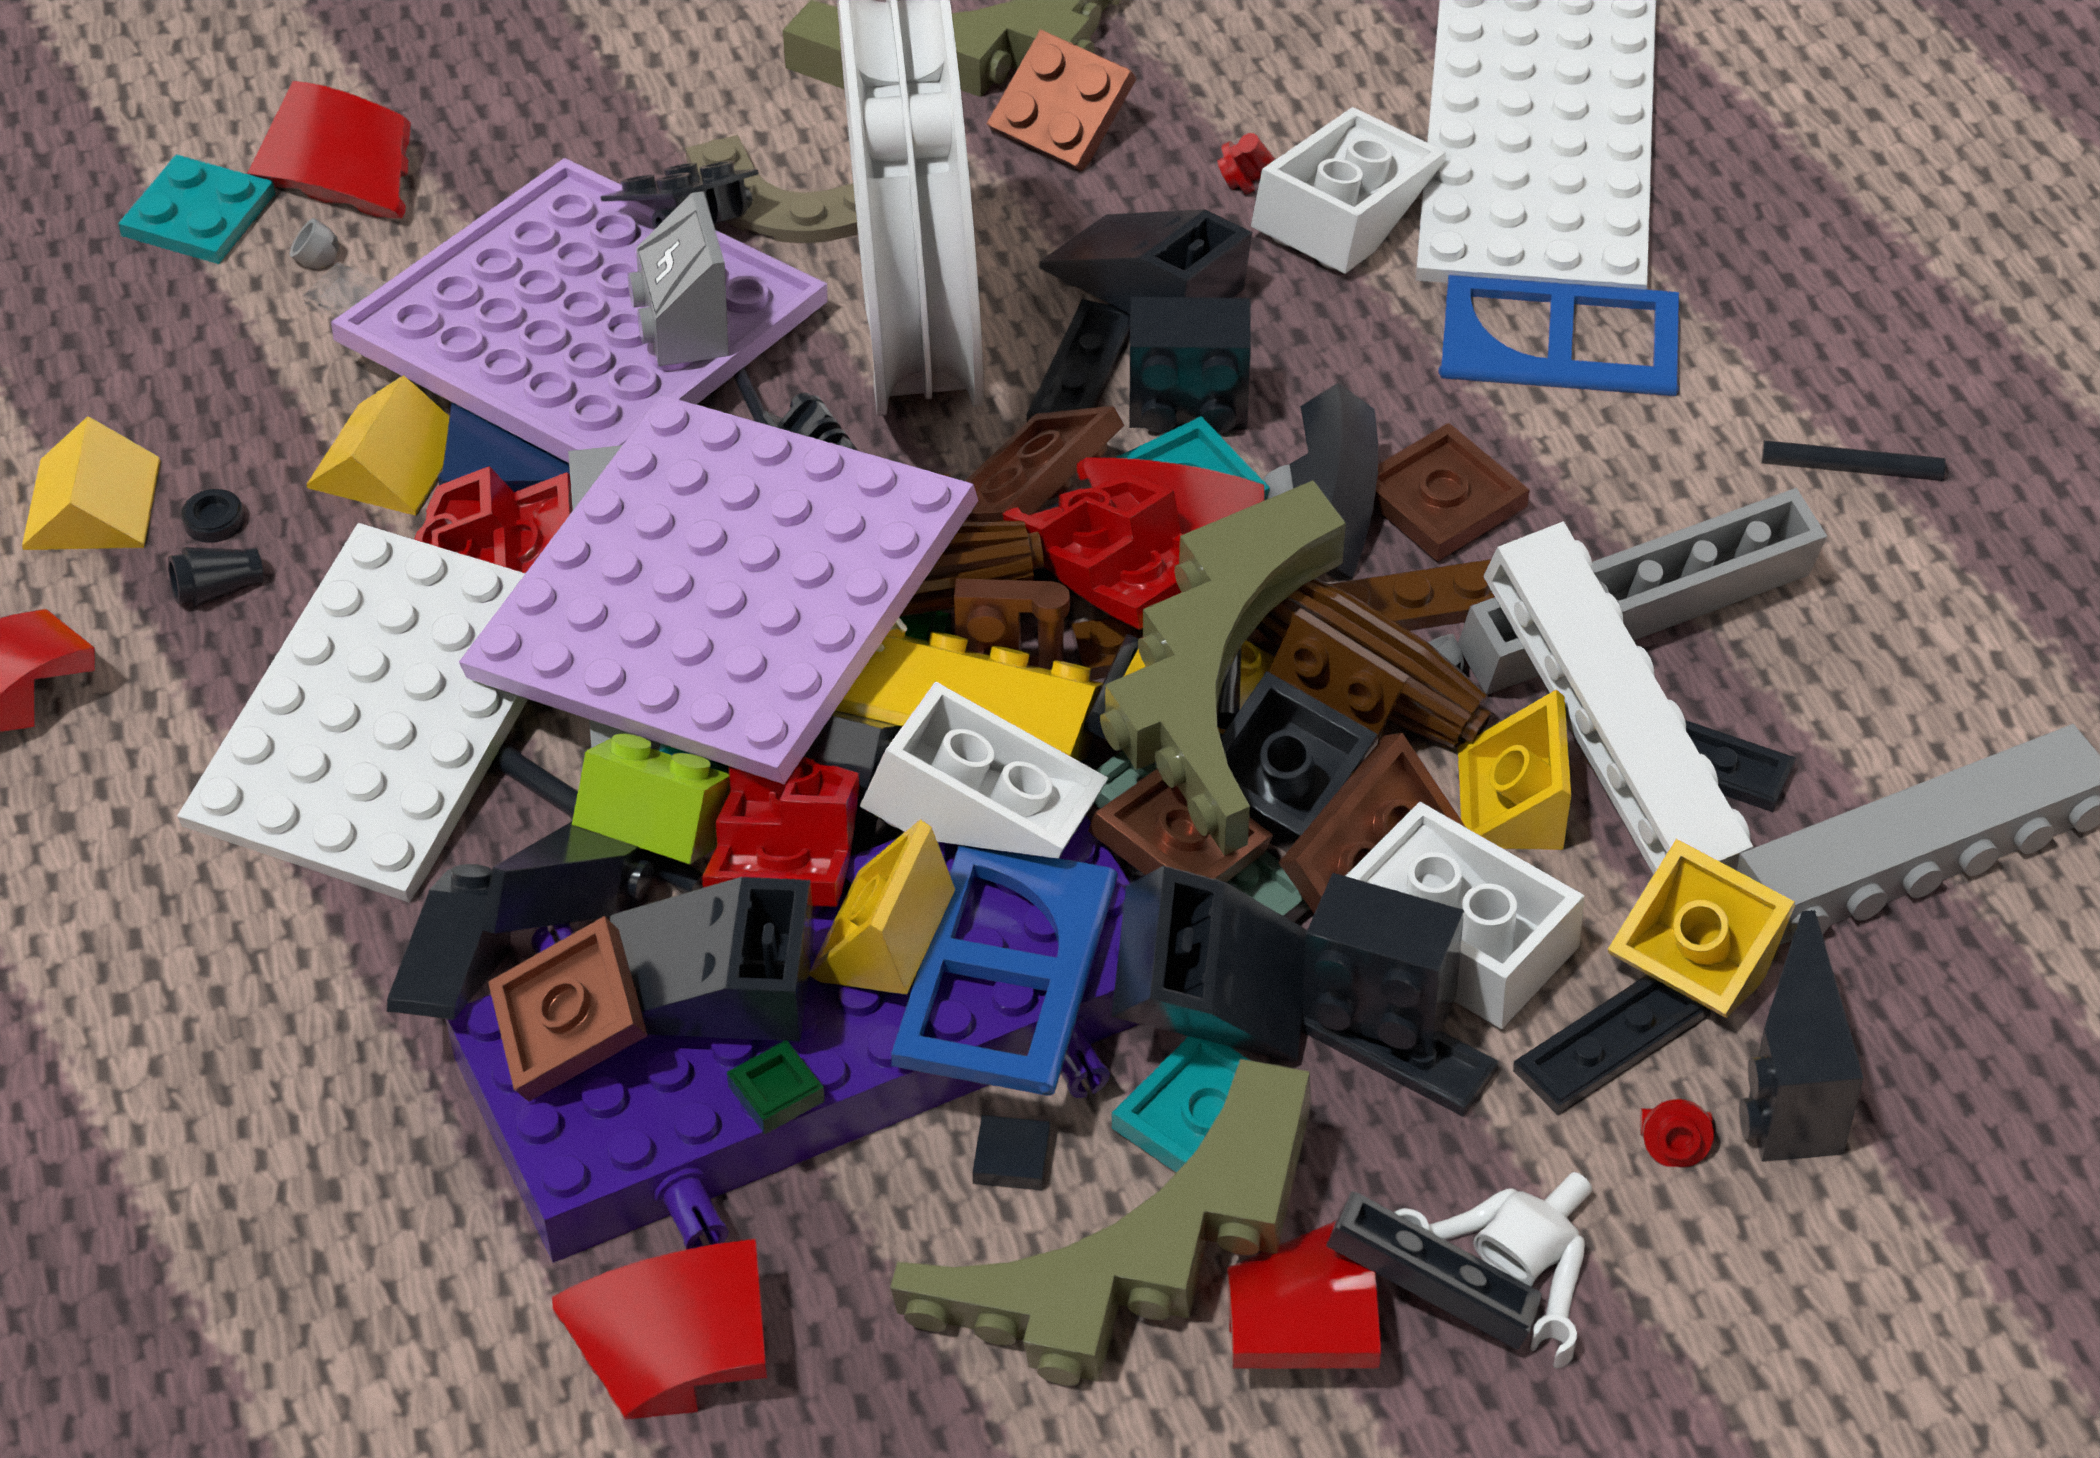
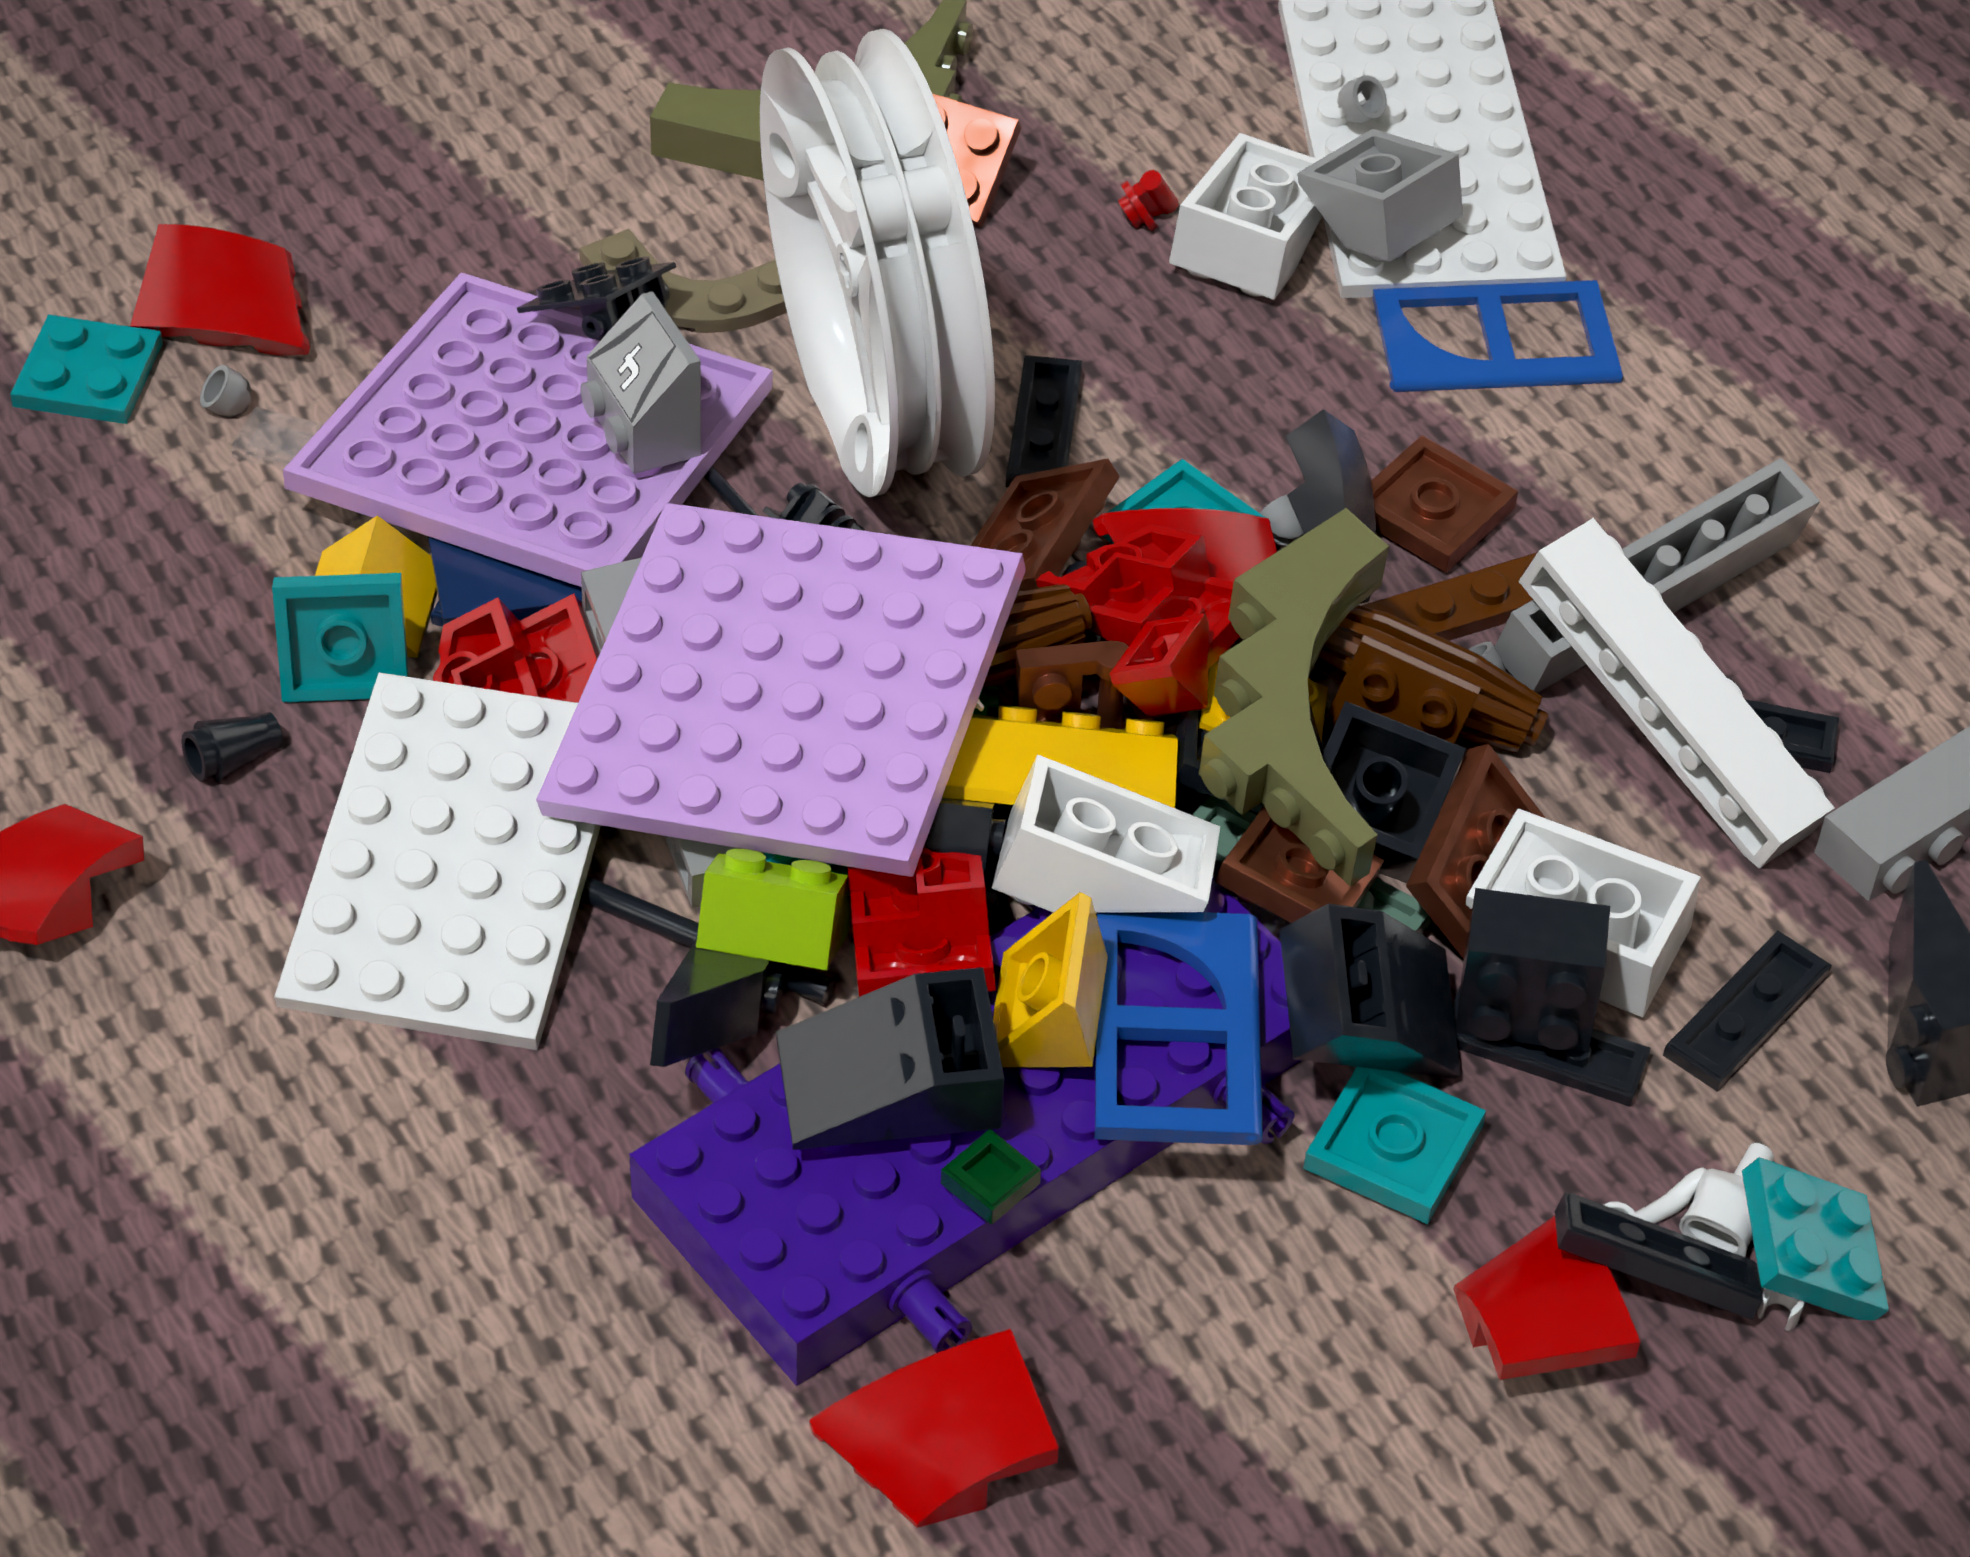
camera: 15 degrees left, 0 degrees up
(92, 492) = (71, 677): yellow slope -> none
(212, 515) = (207, 685): black tile -> none
(333, 480) = (338, 634): none -> teal plate
(448, 949) = (616, 1083): black slope -> none
(567, 1009) = (769, 1130): copper plate -> none
(1011, 1152) = (1215, 1207): black tile -> none
(1098, 614) = (1166, 666): none -> red slope
(1148, 1260) = (1387, 1292): olive arch -> none
(1154, 257) = (1093, 311): black slope -> none
(1189, 362) = (1162, 405): black brick -> none
(1474, 181) = (1385, 193): none -> light grey slope
(1490, 98) = (1368, 109): none -> light grey hinge
(1519, 778) = (1595, 770): yellow slope -> none
(1603, 1280) = (1814, 1240): none -> teal plate
(1677, 1132) = (1835, 1090): red plate -> none
(1704, 929) = (1811, 892): yellow slope -> none
(1853, 460) = (1805, 424): black bar -> none

